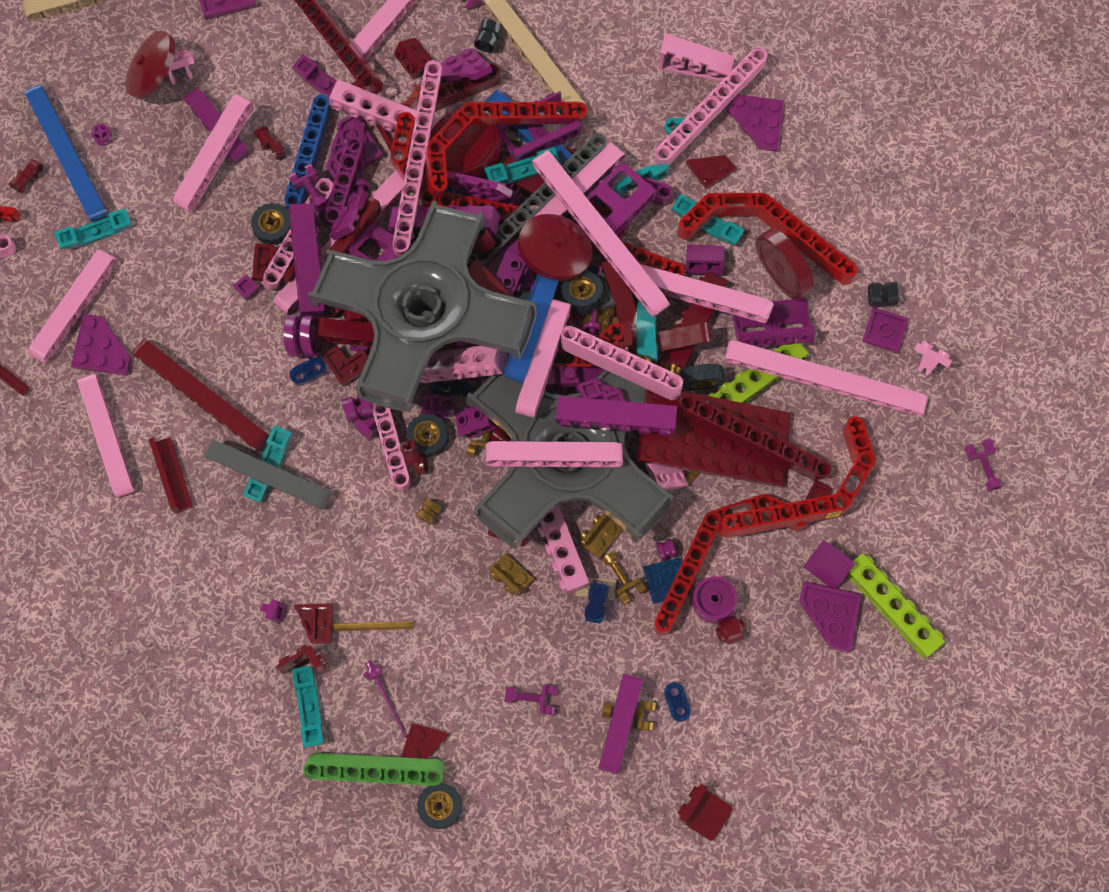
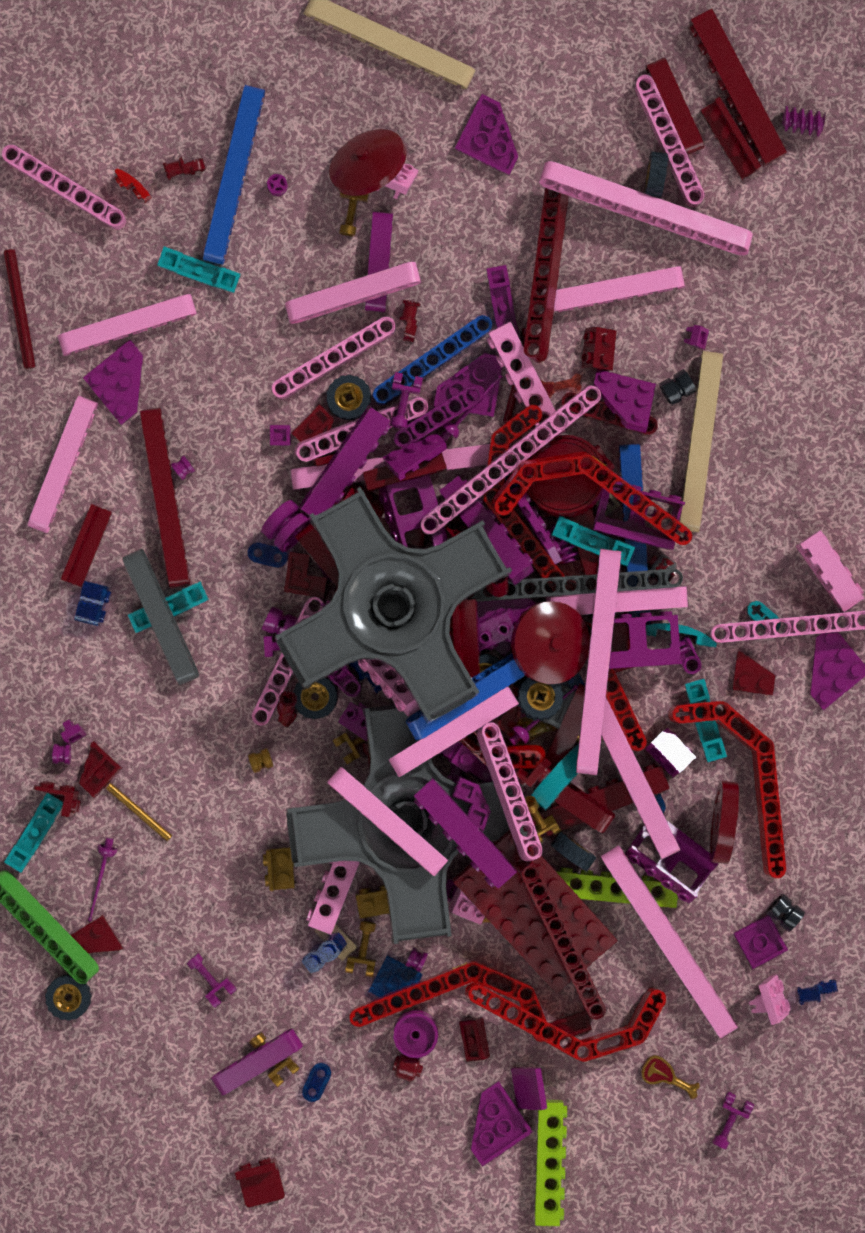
camera: 40 degrees right, 15 degrees up
(175, 121) = (348, 228): none -> pearl gold bar
(195, 364) = (183, 467): none -> magenta wheel
(209, 509) = (92, 603): none -> clear blue brick
(238, 199) = (339, 349): none -> bright pink beam
(279, 633) = (61, 754): none -> magenta wheel
(758, 570) = (474, 1039): none -> dark red slope
(904, 475) = (659, 1070): none -> pearl gold piece
(954, 328) = (813, 993): none -> clear blue connector

